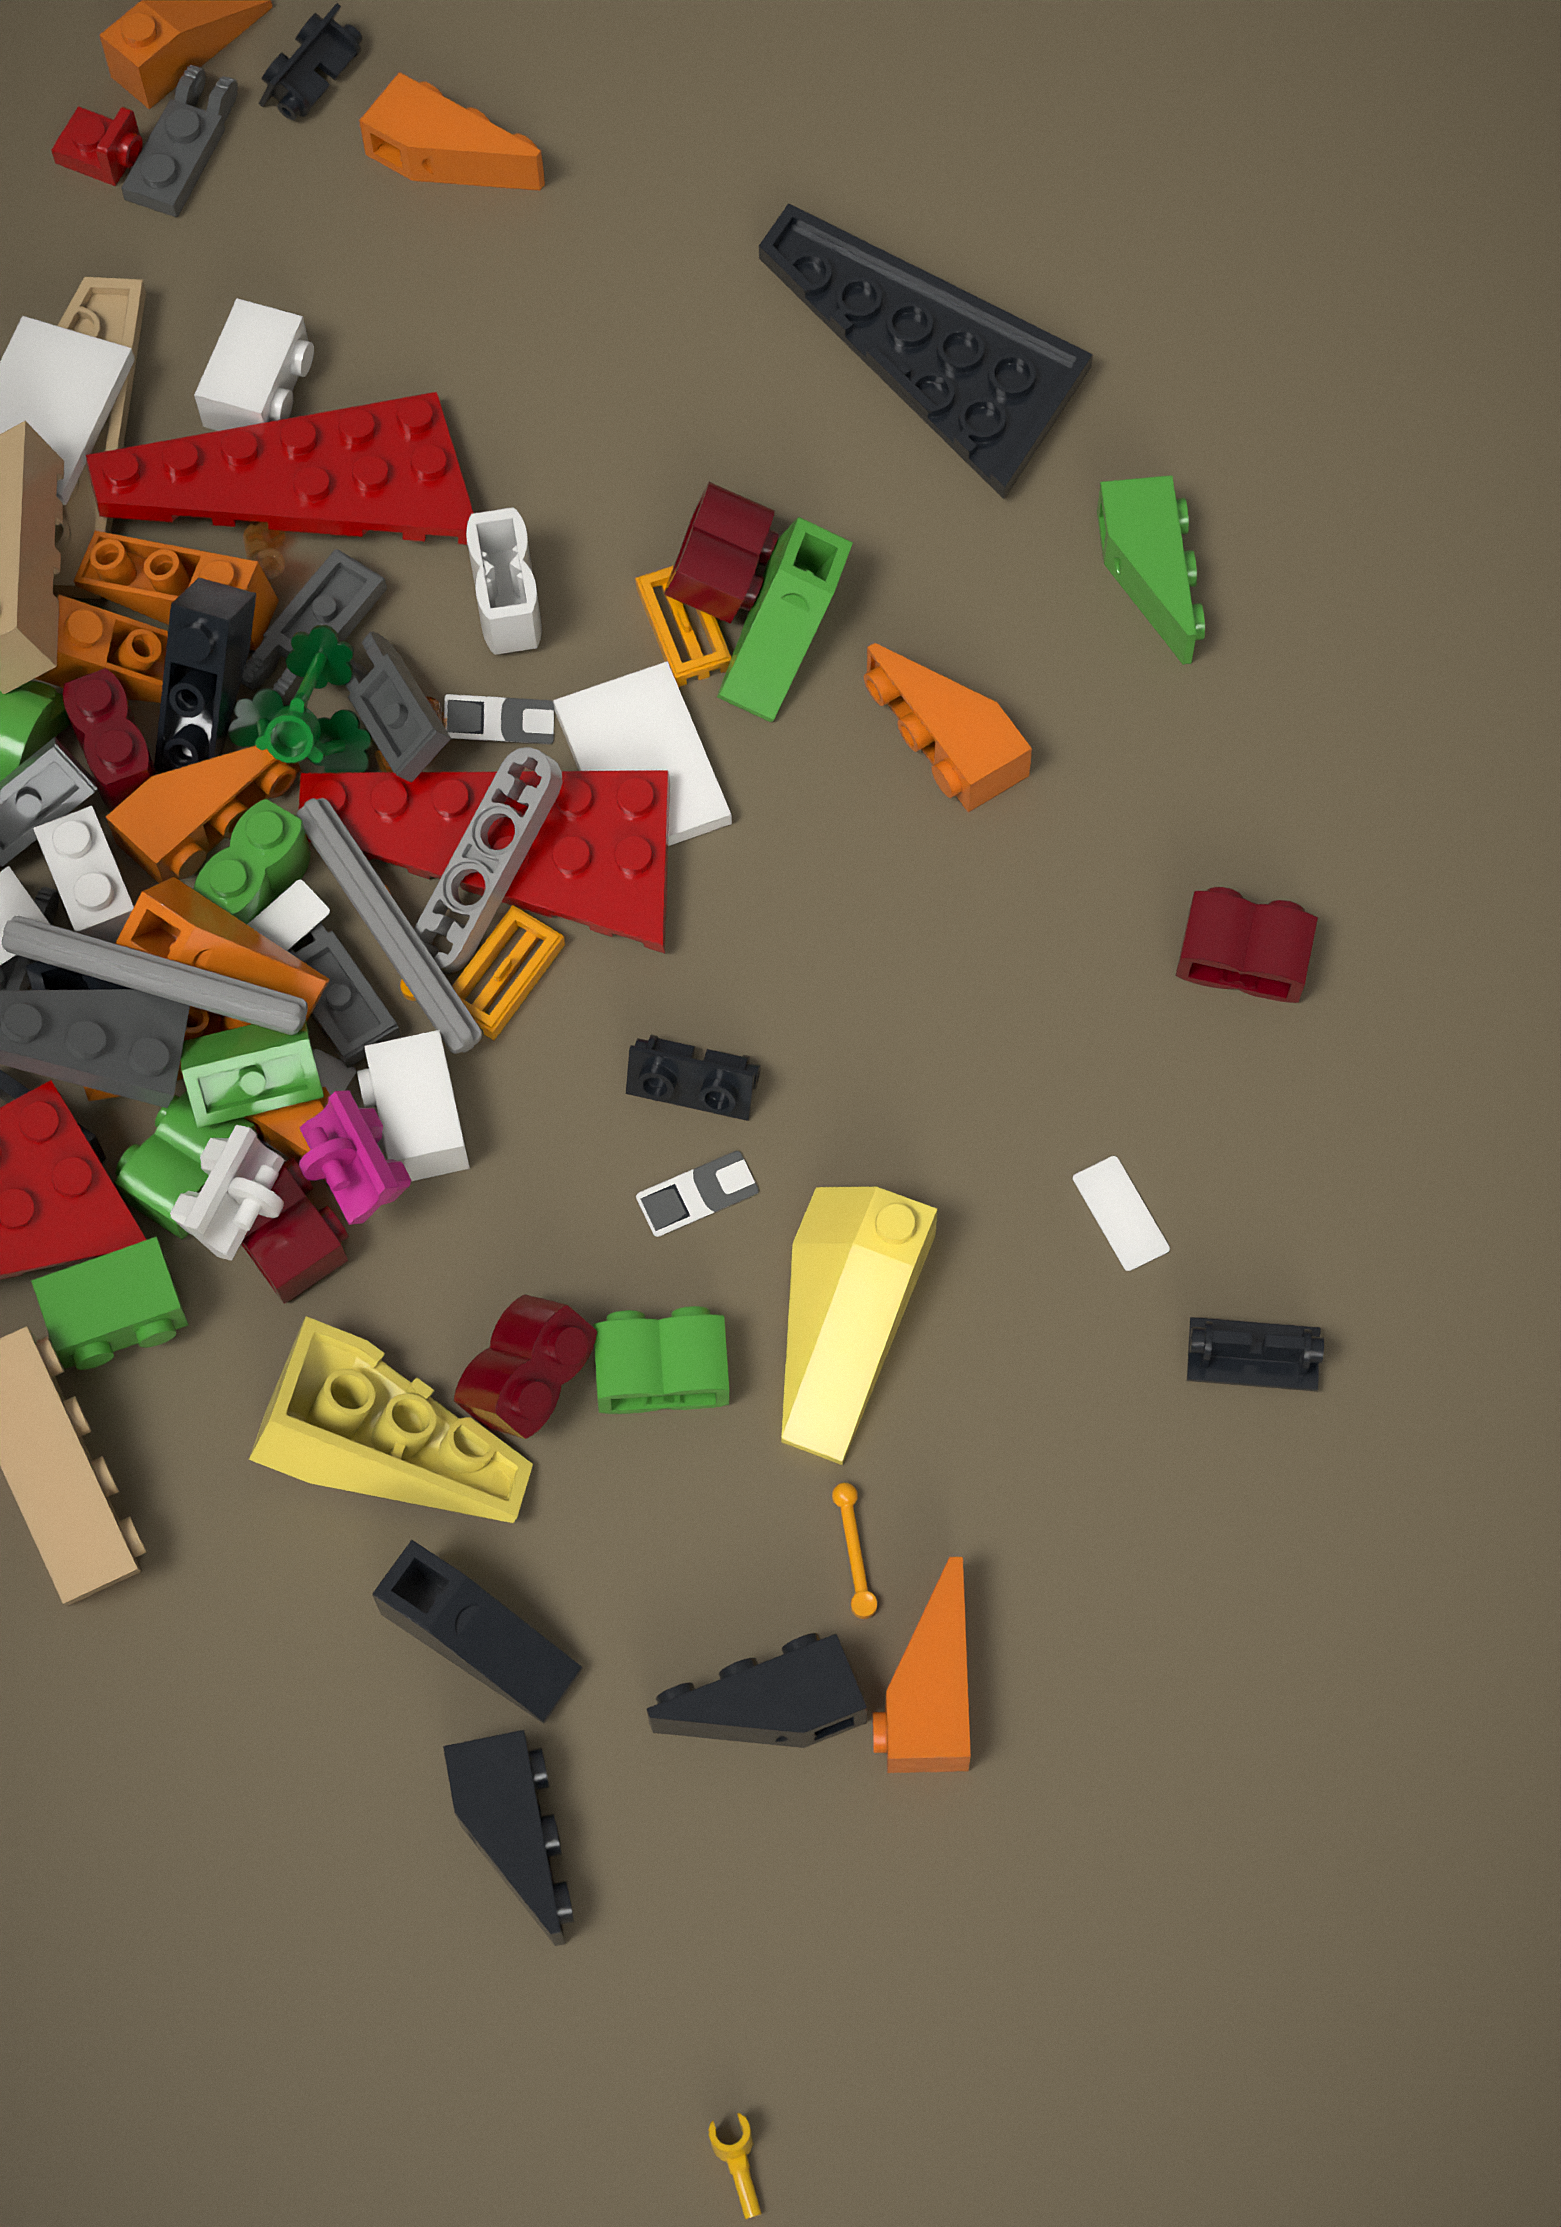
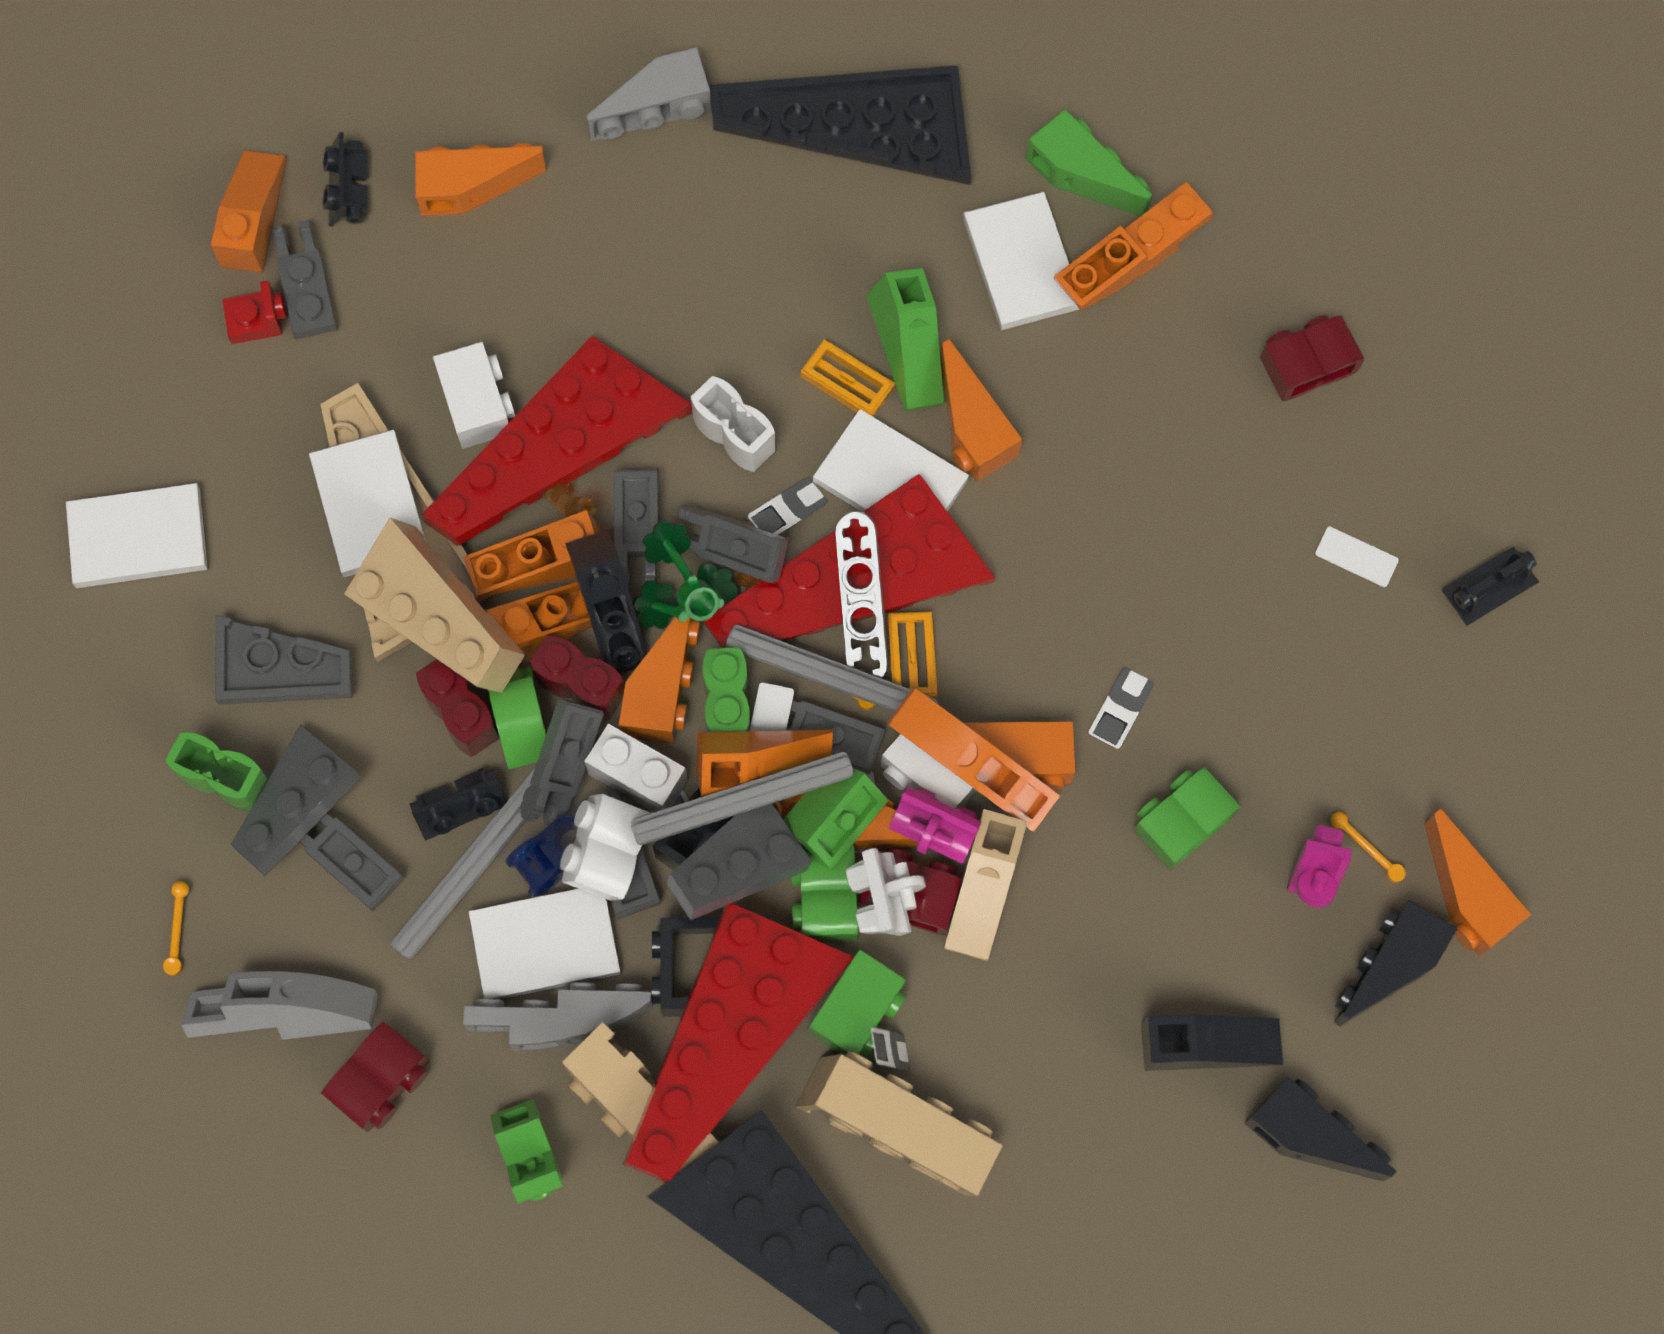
camera: 40 degrees left, 5 degrees up
(105, 1374) = (890, 1049): none -> sticker
(368, 1430) = (1051, 974): light yellow wedge -> none
(373, 1264) = (985, 885): none -> tan slope
(450, 1116) = (973, 758): none -> orange slope
(522, 1372) = (1119, 873): dark red brick -> none
(543, 1164) = (1039, 747): none -> orange slope
(670, 1075) = (1087, 637): black hinge -> none
(717, 177) = (659, 93): none -> light grey slope
(722, 553) = (844, 323): dark red brick -> none
(738, 2165) = (1573, 1223): yellow hand -> none
(760, 1522) = (1320, 867): none -> dark pink hips
(782, 757) = (978, 427): none -> orange slope
(846, 1300) = (1255, 704): light yellow wedge -> none
(961, 732) = (1056, 339): orange slope -> none
(997, 615) = (1019, 258): none -> white tile
(1128, 691) = (1134, 249): none -> orange slope

